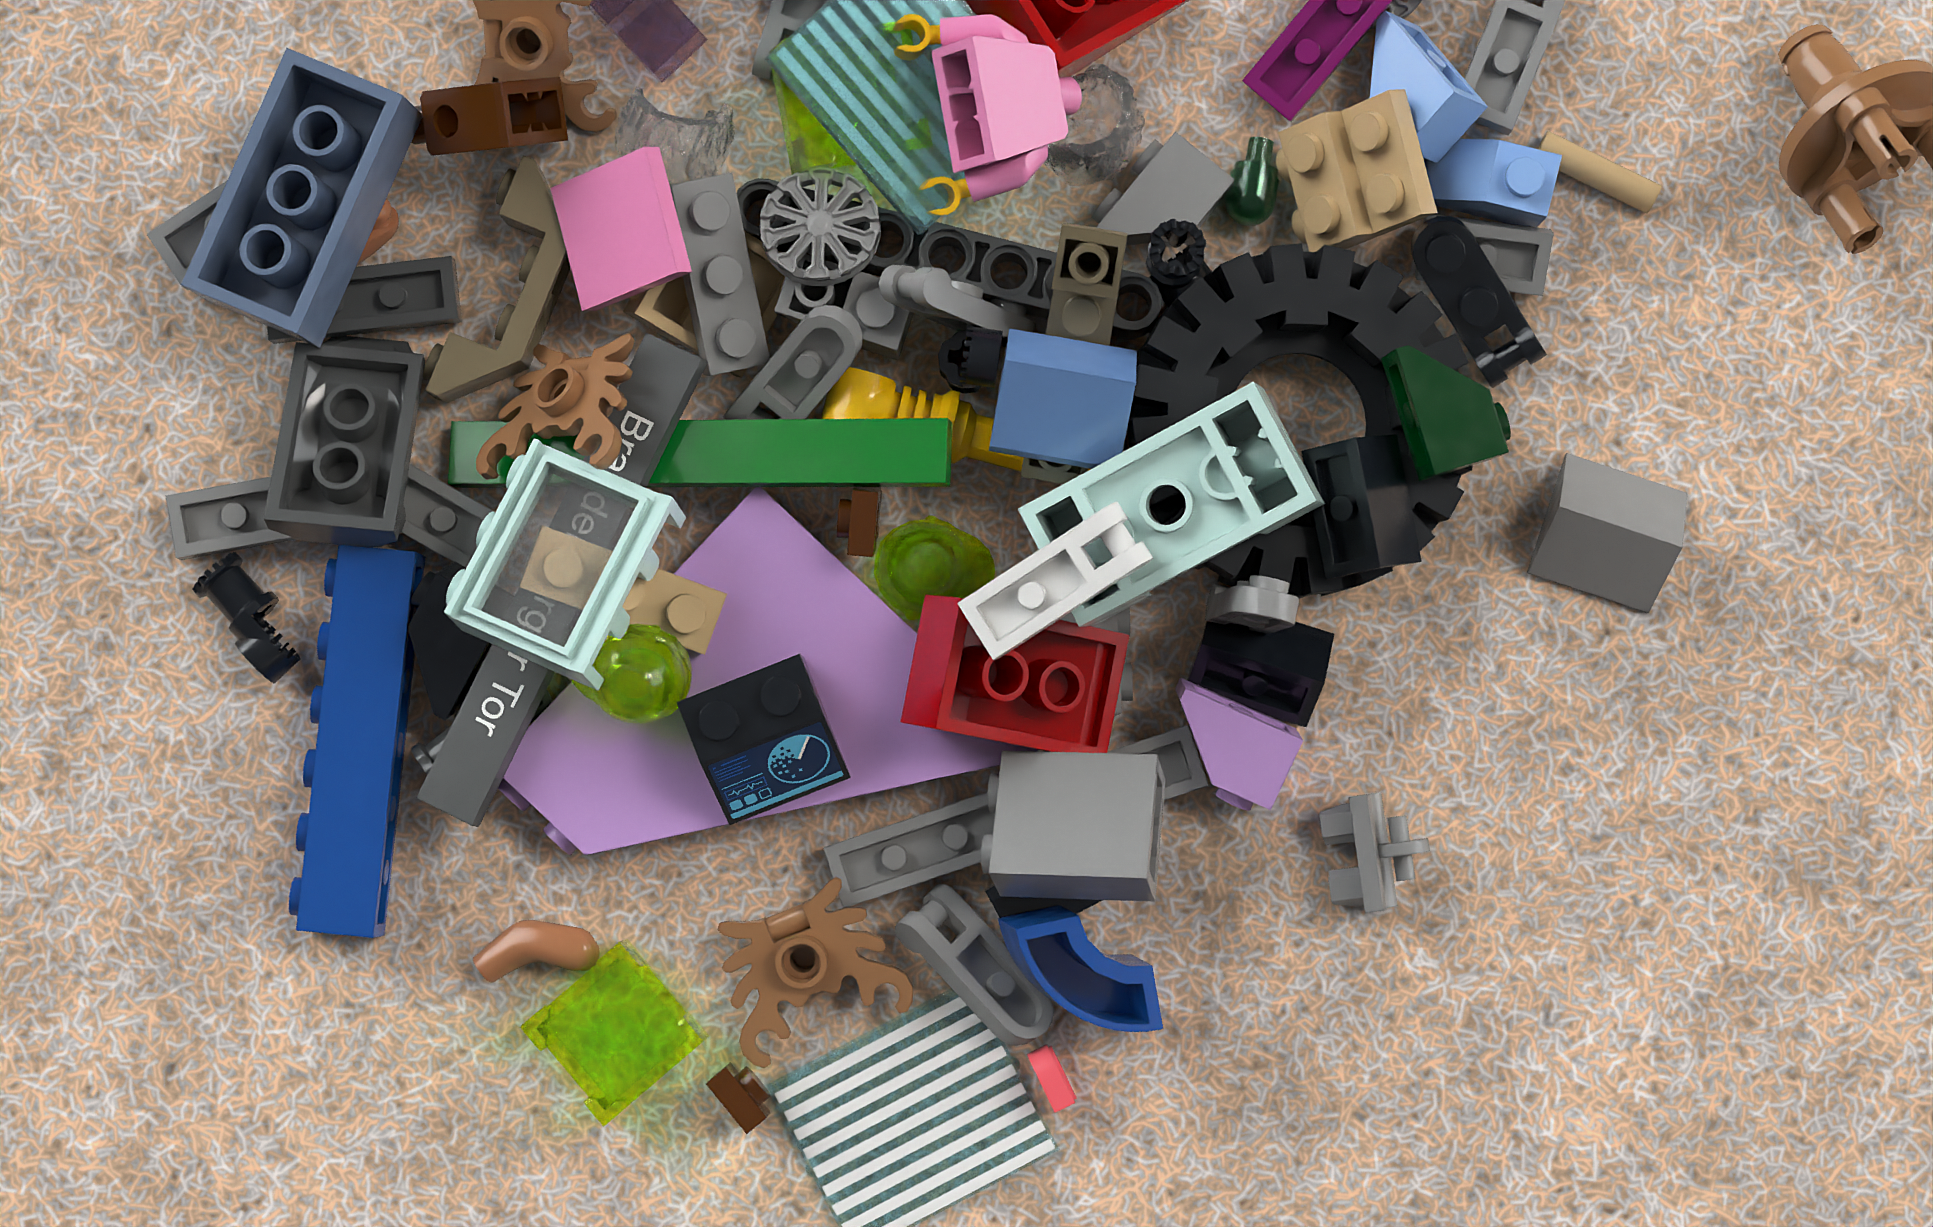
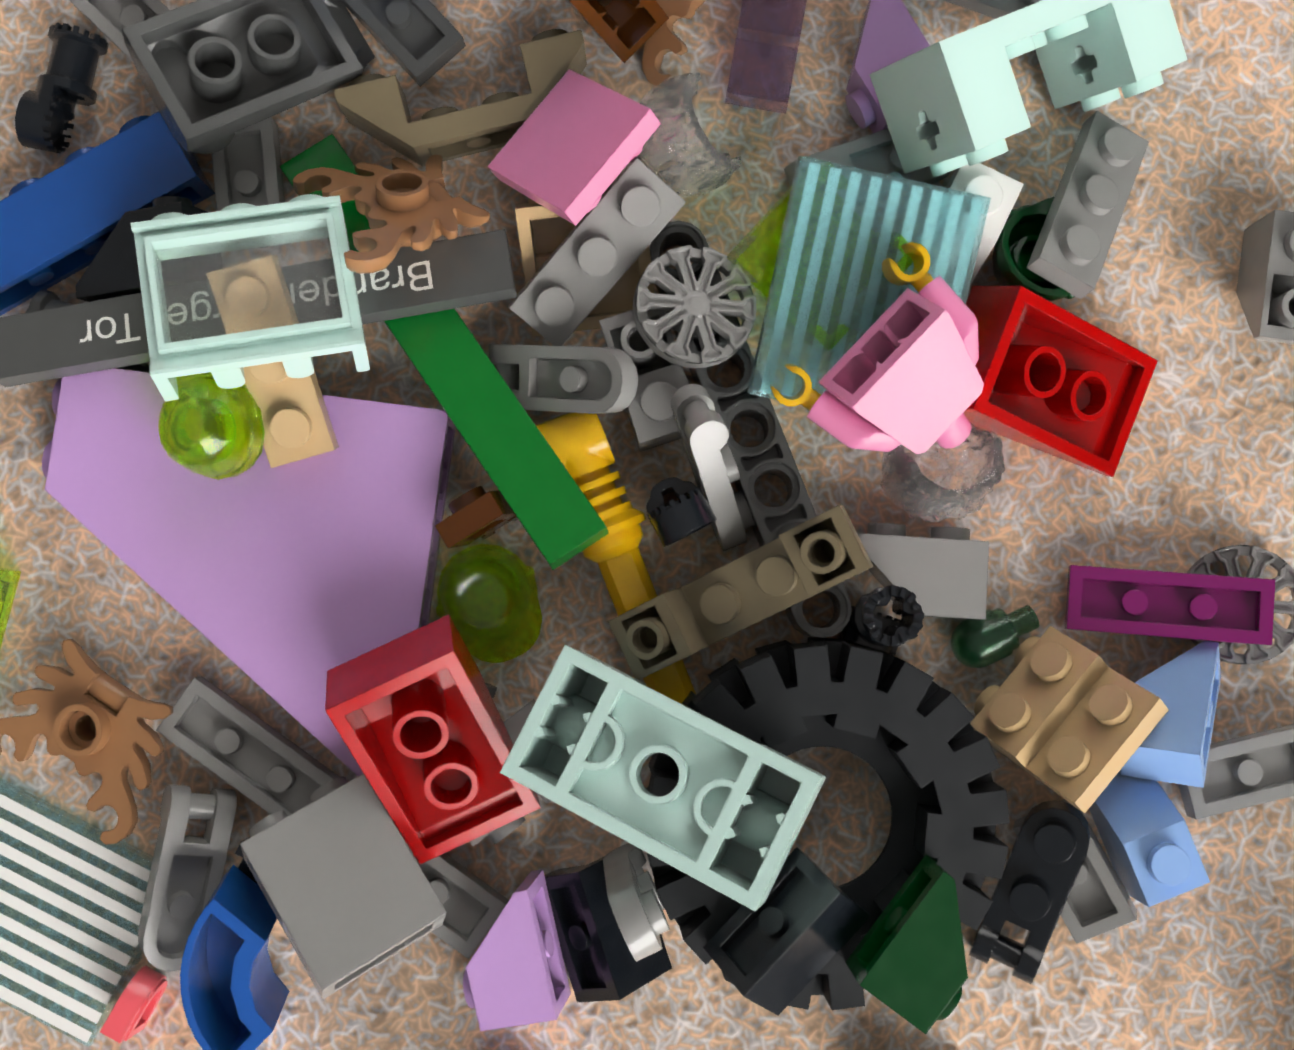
camera: 55 degrees right, 0 degrees up
(764, 739) = (233, 565): slope -> none
(1052, 582) = (517, 725): white plate -> none
(1063, 399) = (694, 614): medium blue slope -> none
(1602, 173) = (1214, 921): tan piece -> none

